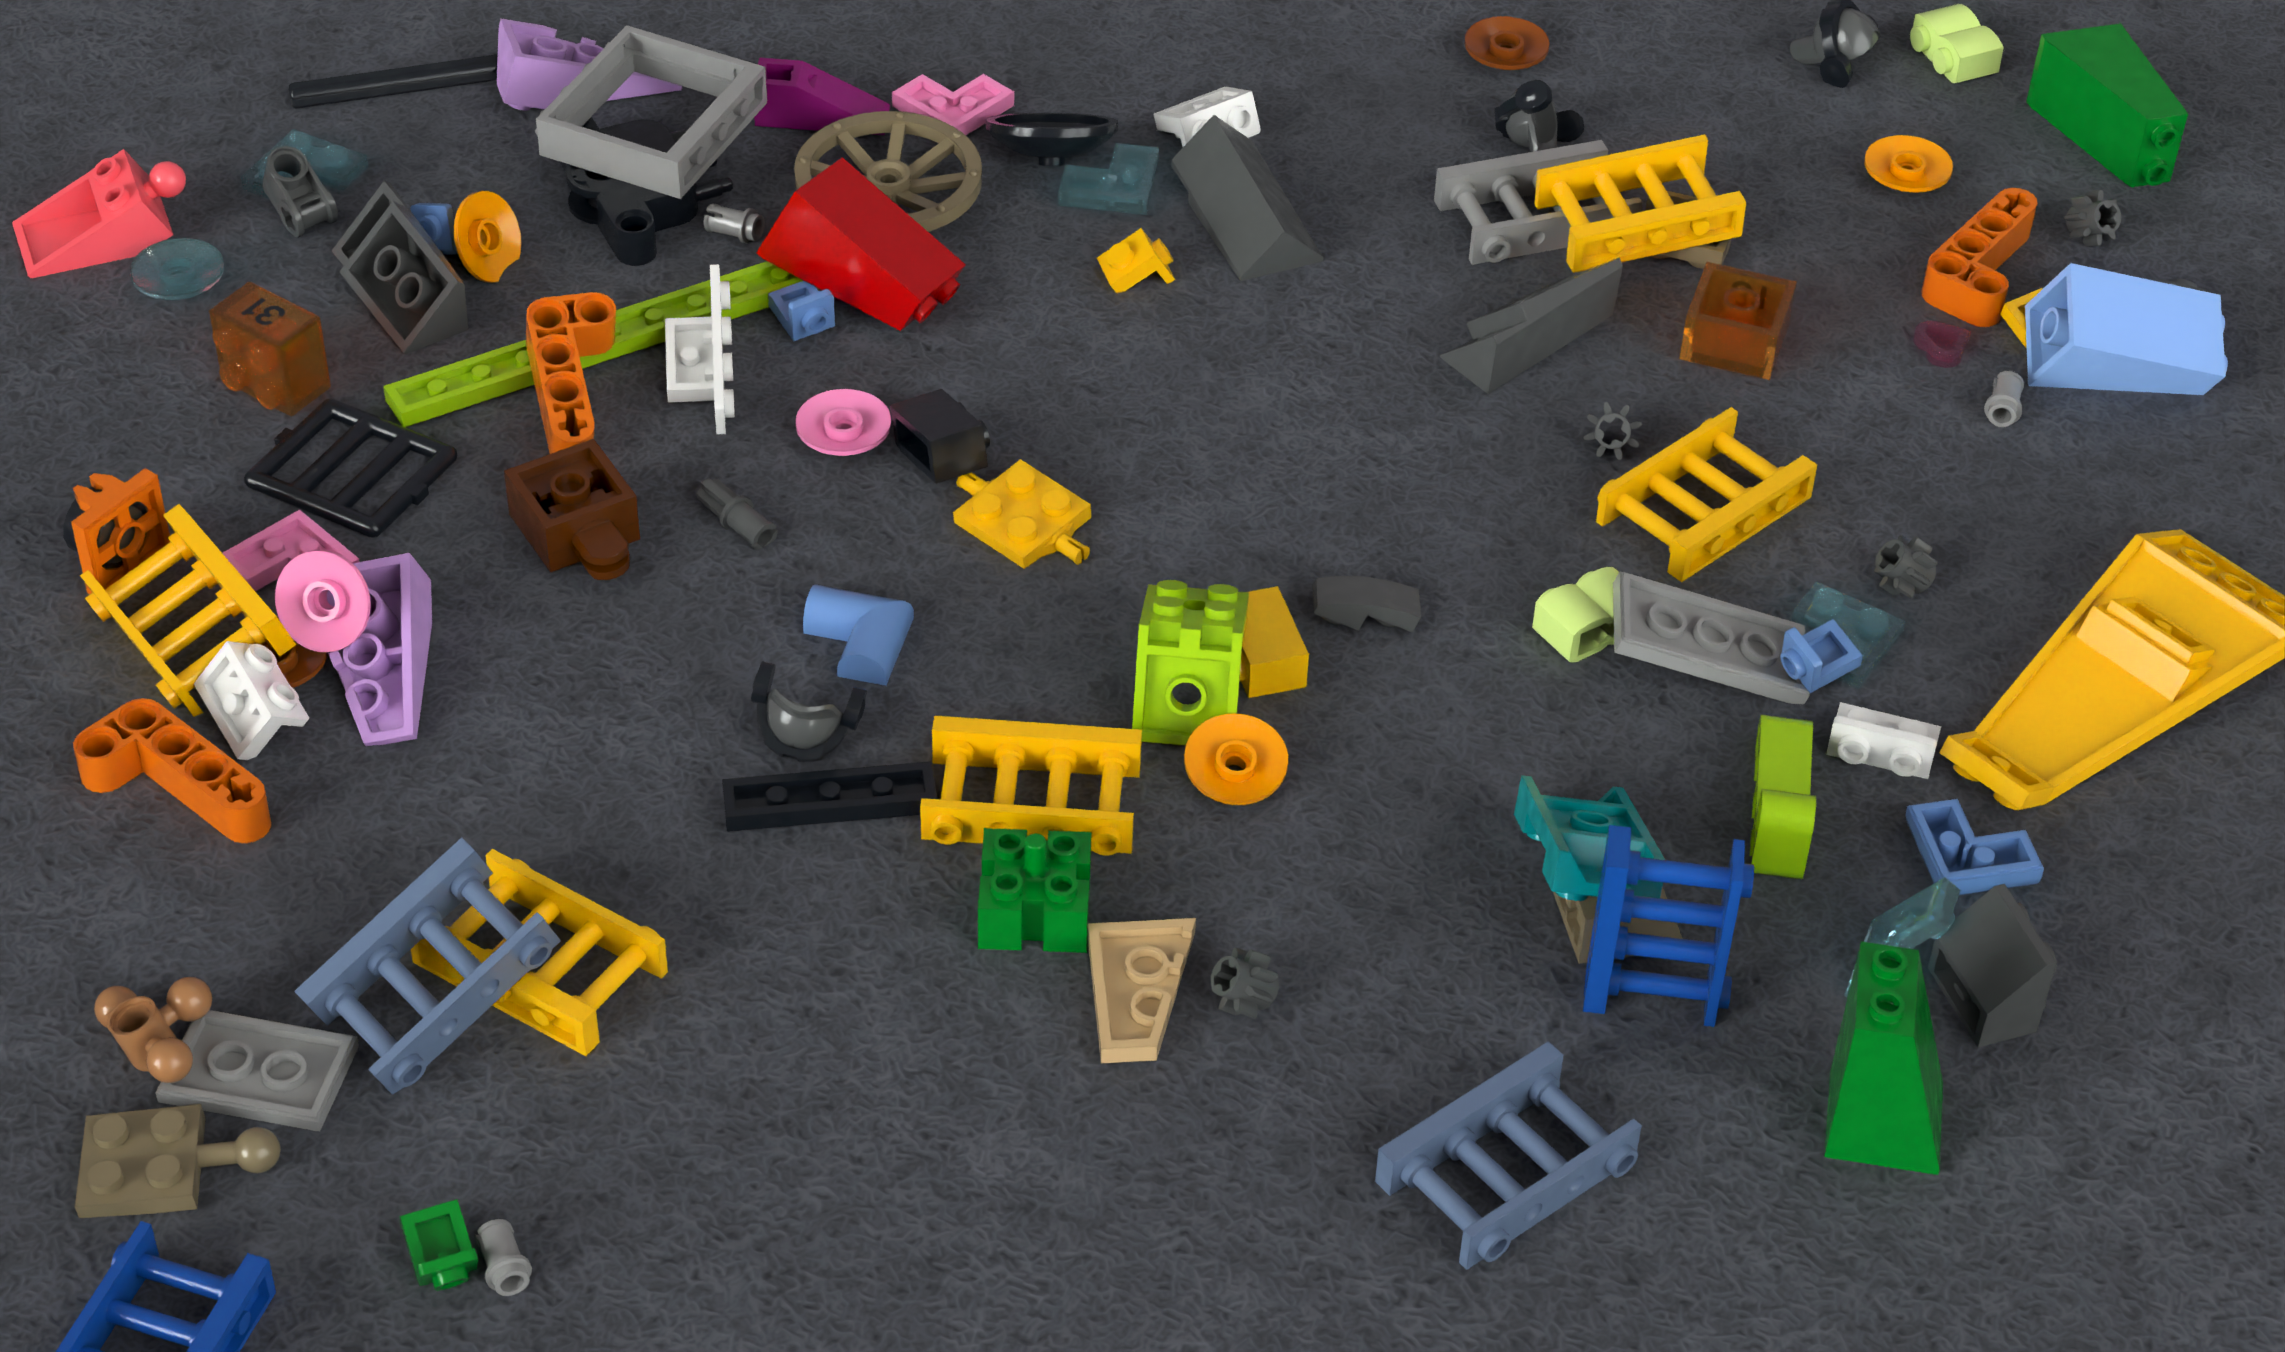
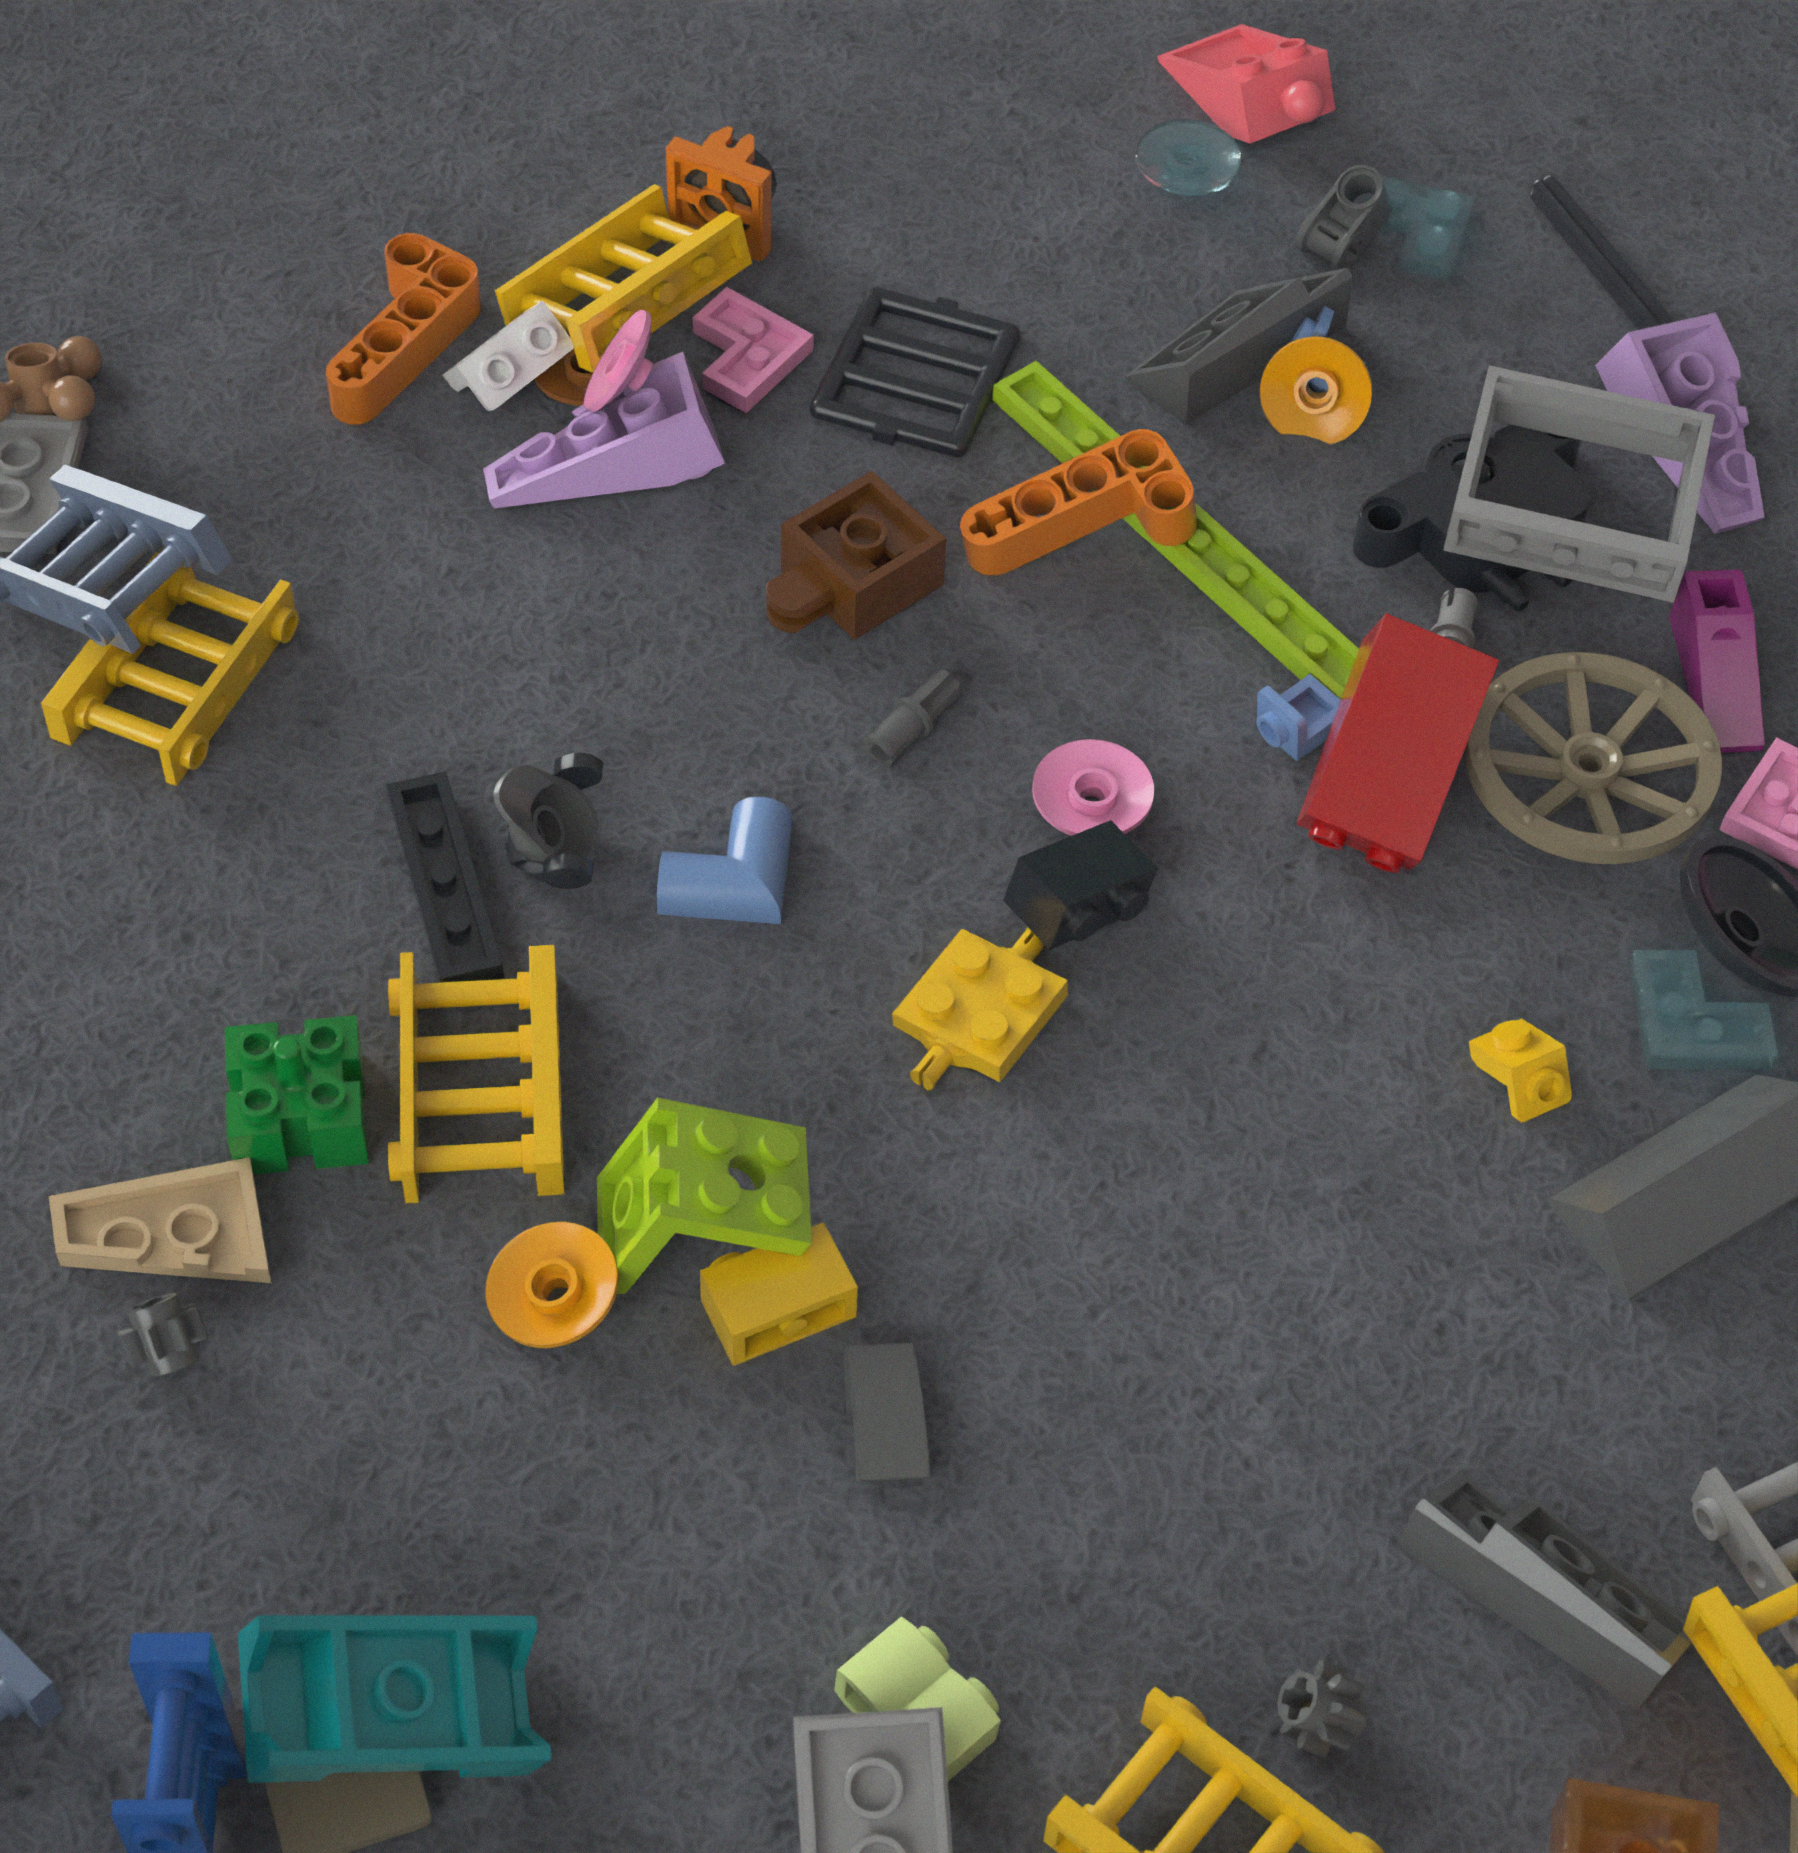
camera: 80 degrees right, 10 degrees up
(270, 349) = (1045, 246): clear orange brick -> none
(696, 355) = (1174, 628): white bracket -> none

